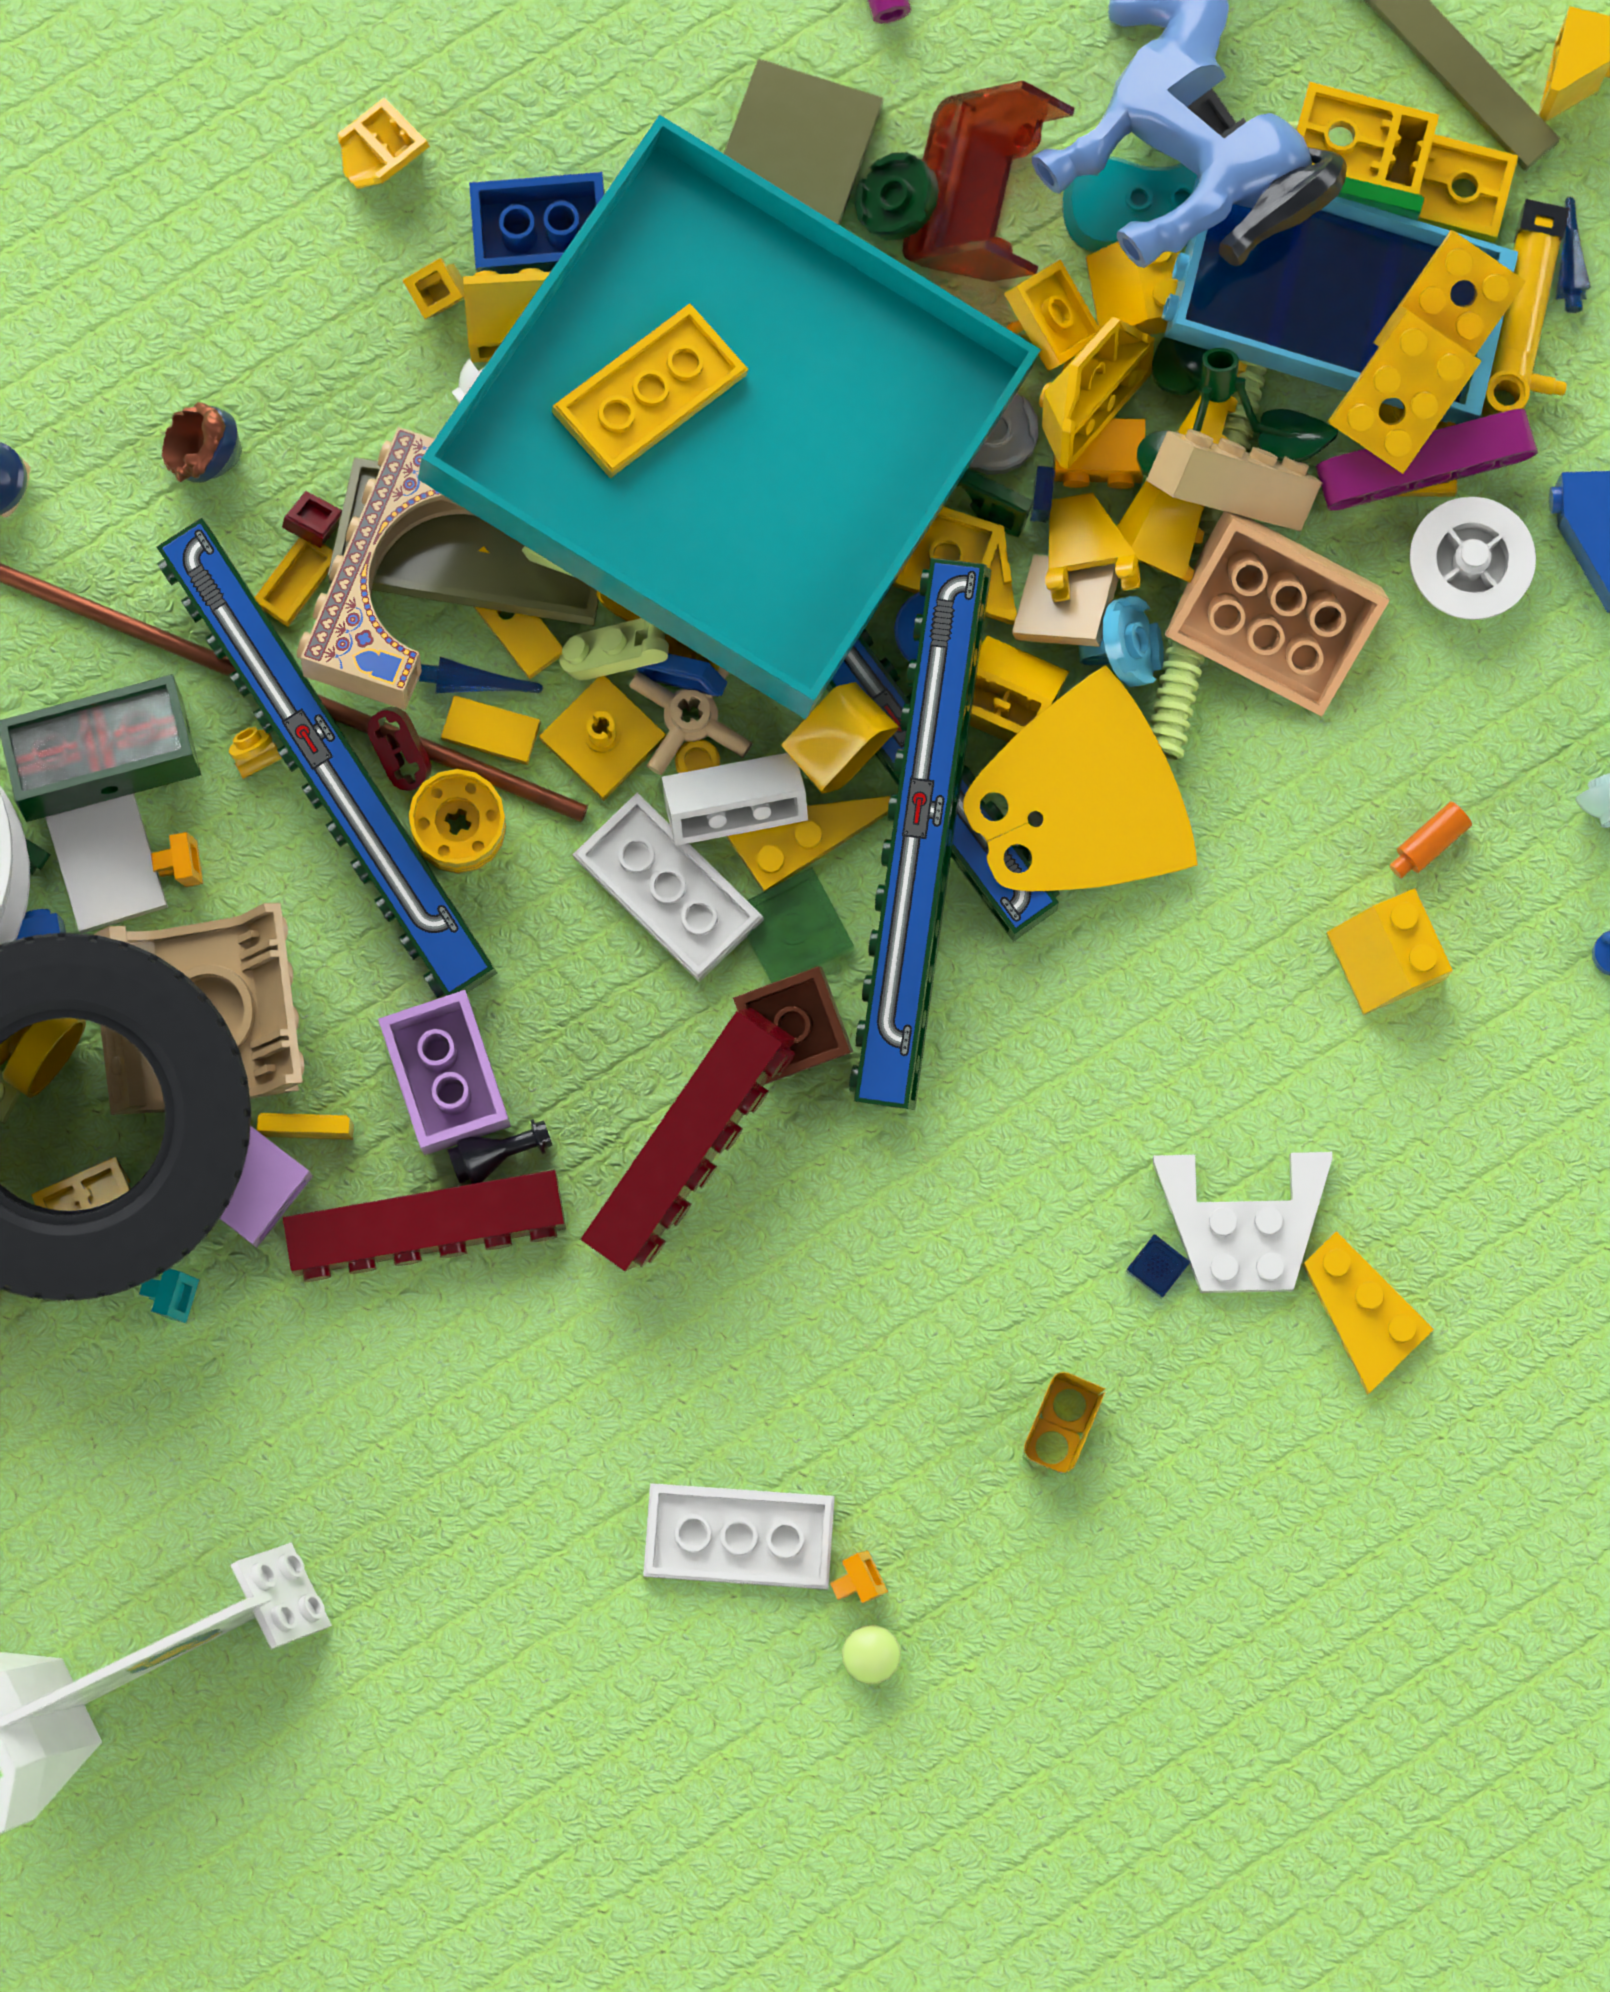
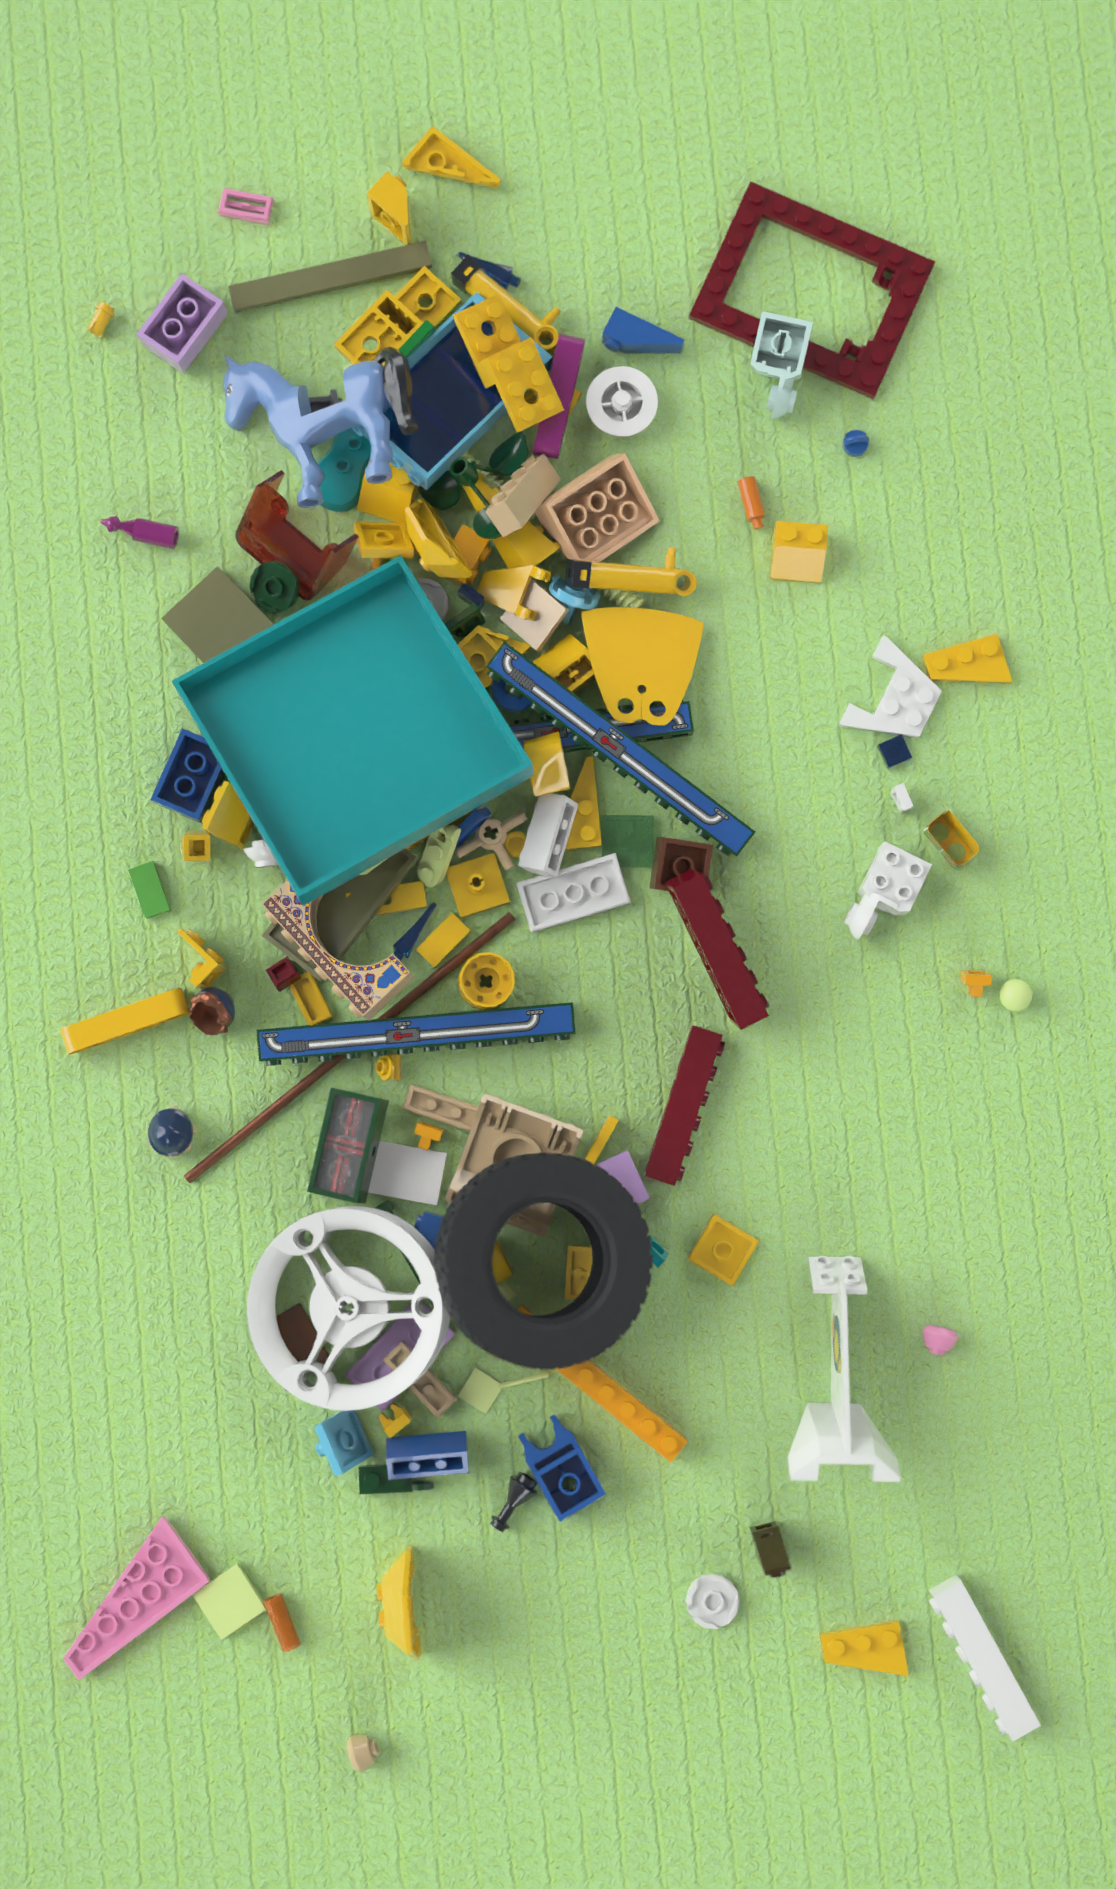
camera: 65 degrees left, 5 degrees up
(120, 326) = (124, 1021): none -> yellow beam
(231, 856) = (440, 1107): none -> tan tile
(233, 1404) = (723, 1250): none -> yellow tile
(264, 1810) = (939, 1339): none -> bright pink cone
(268, 407) = (208, 972): none -> yellow bracket
(337, 259) = (149, 890): none -> bright green tile
(378, 145) = (100, 836): yellow slope -> none
(390, 753) = (428, 997): dark red beam -> none
(444, 1072) = (612, 1055): lavender brick -> none
(478, 1157) = (663, 1061): black piece -> none
(649, 390) = (317, 763): yellow tile -> none
(739, 1536) = (921, 1030): white tile -> none
(938, 1362) = (887, 886): none -> white brick
(1087, 1313) = (901, 798): none -> white tile
(1200, 712) = (630, 577): none -> yellow piece

